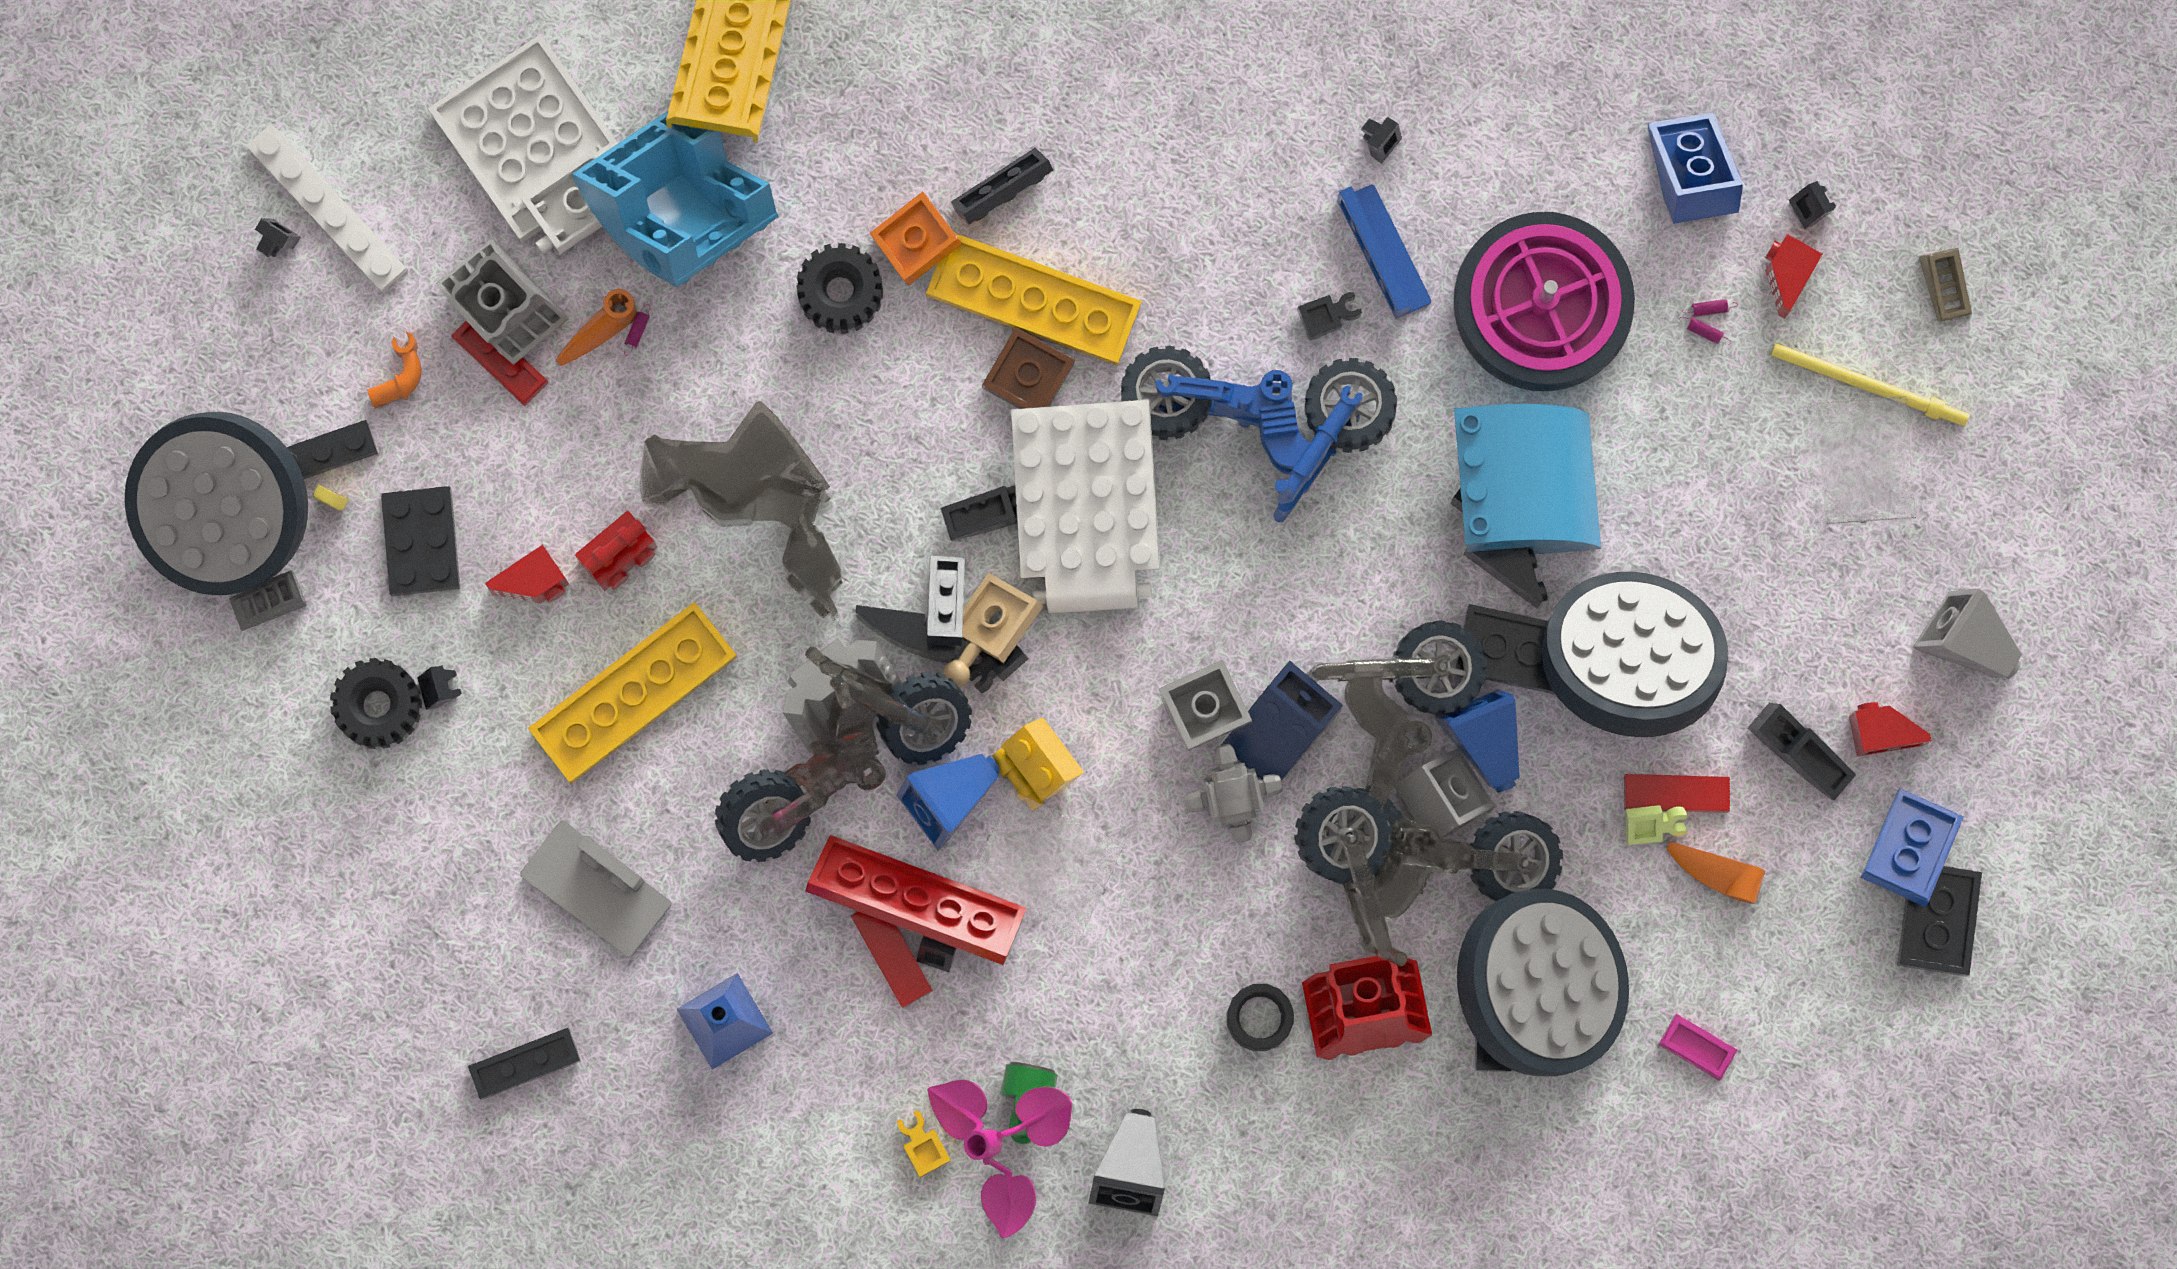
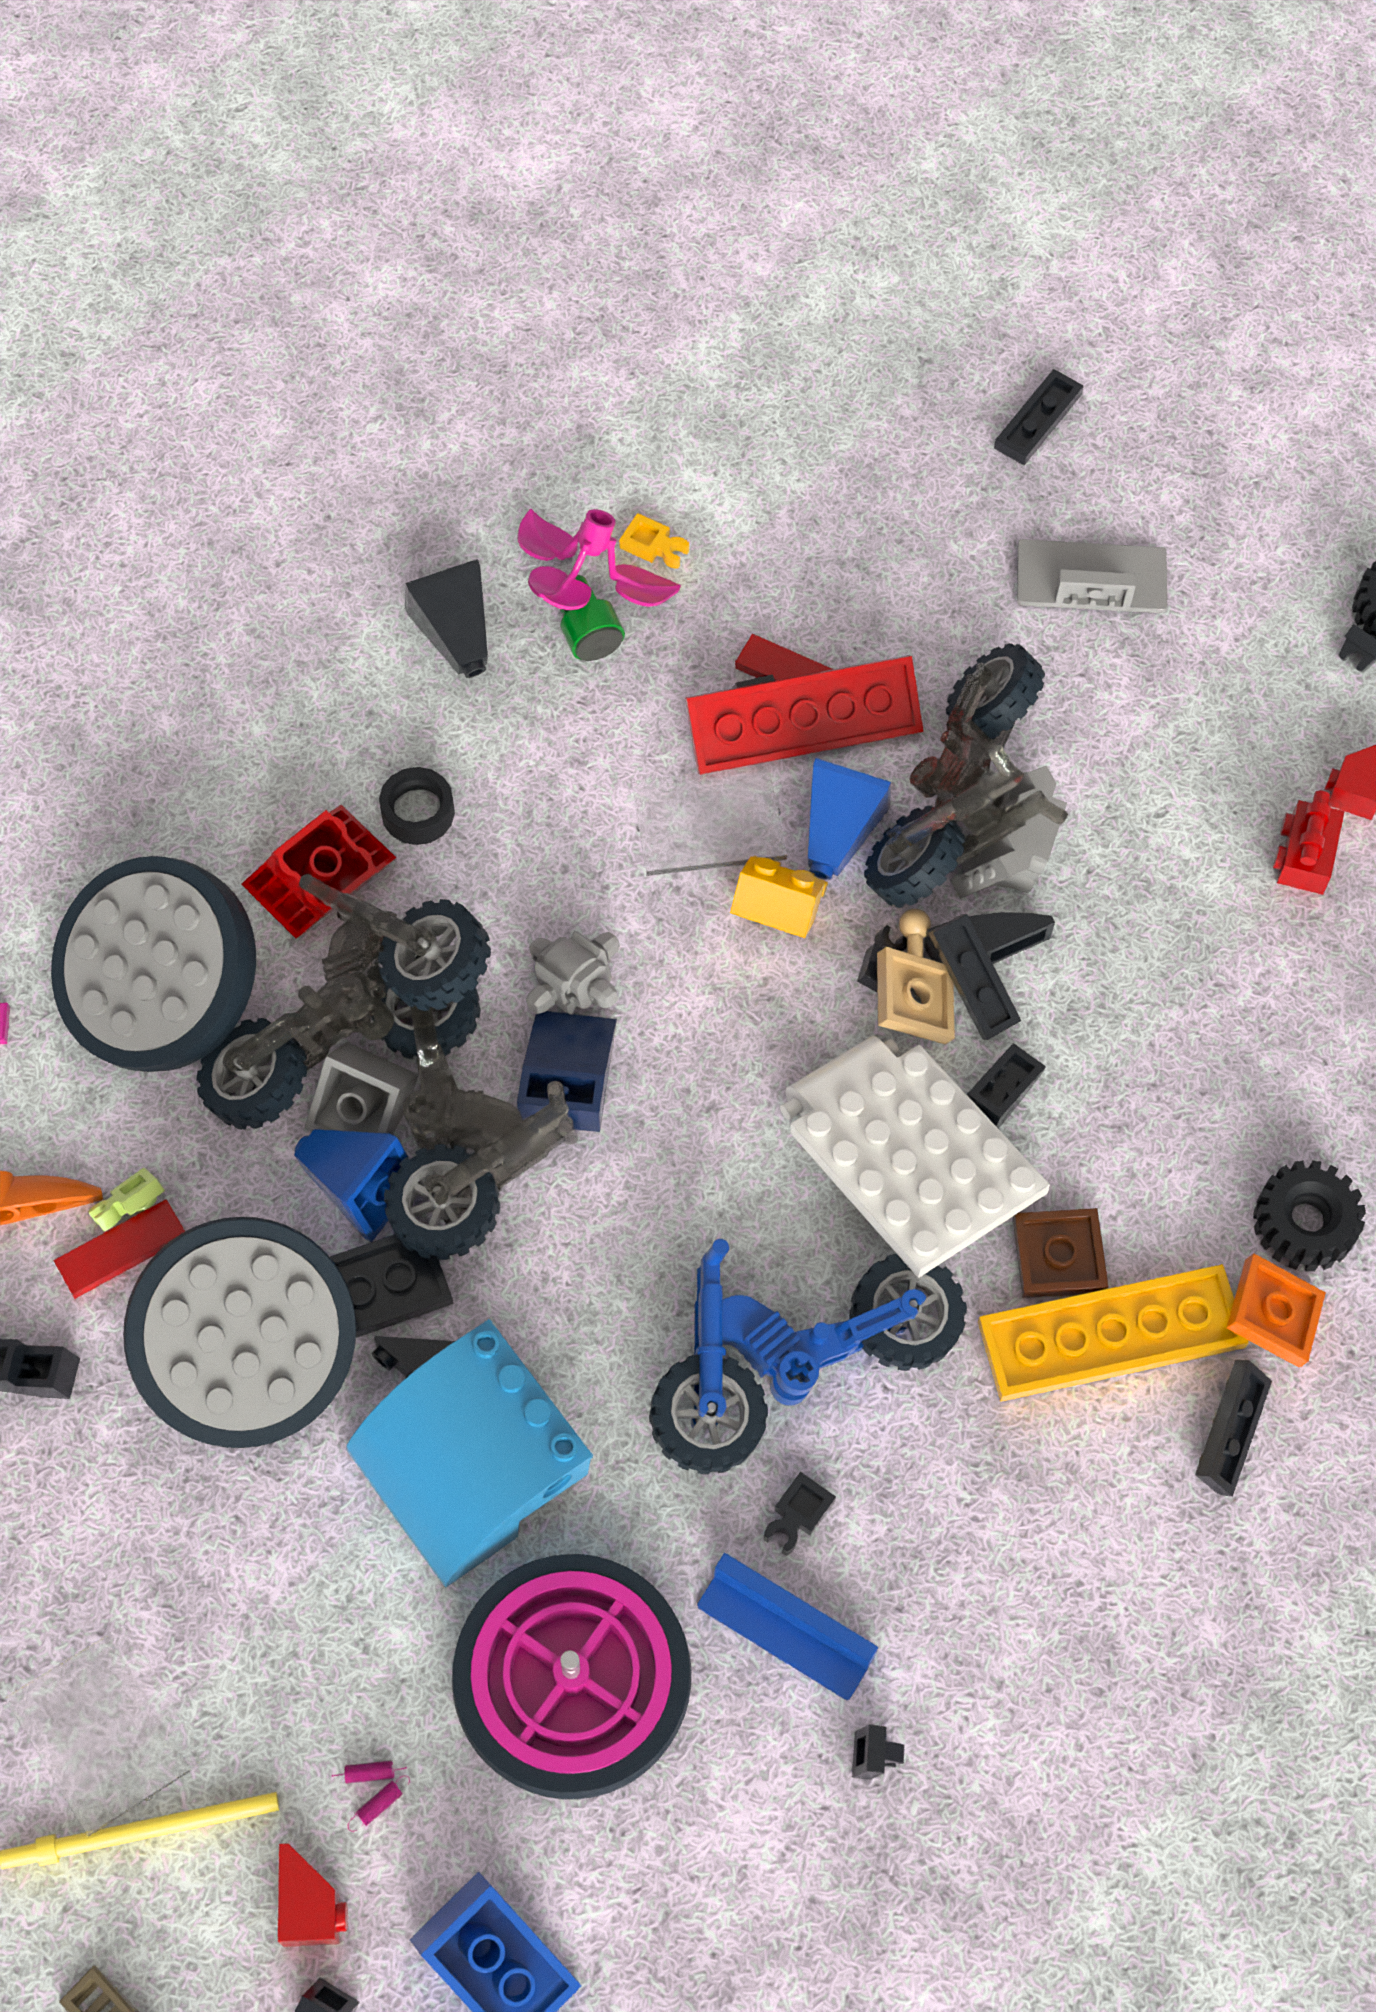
camera: 150 degrees right, 15 degrees down
(632, 692) = (1192, 744): yellow plate -> none
(735, 1033) = (901, 534): blue slope -> none
(751, 480) = (1236, 974): clear smoke piece -> none
(1204, 705) = (653, 1029): light grey slope -> none

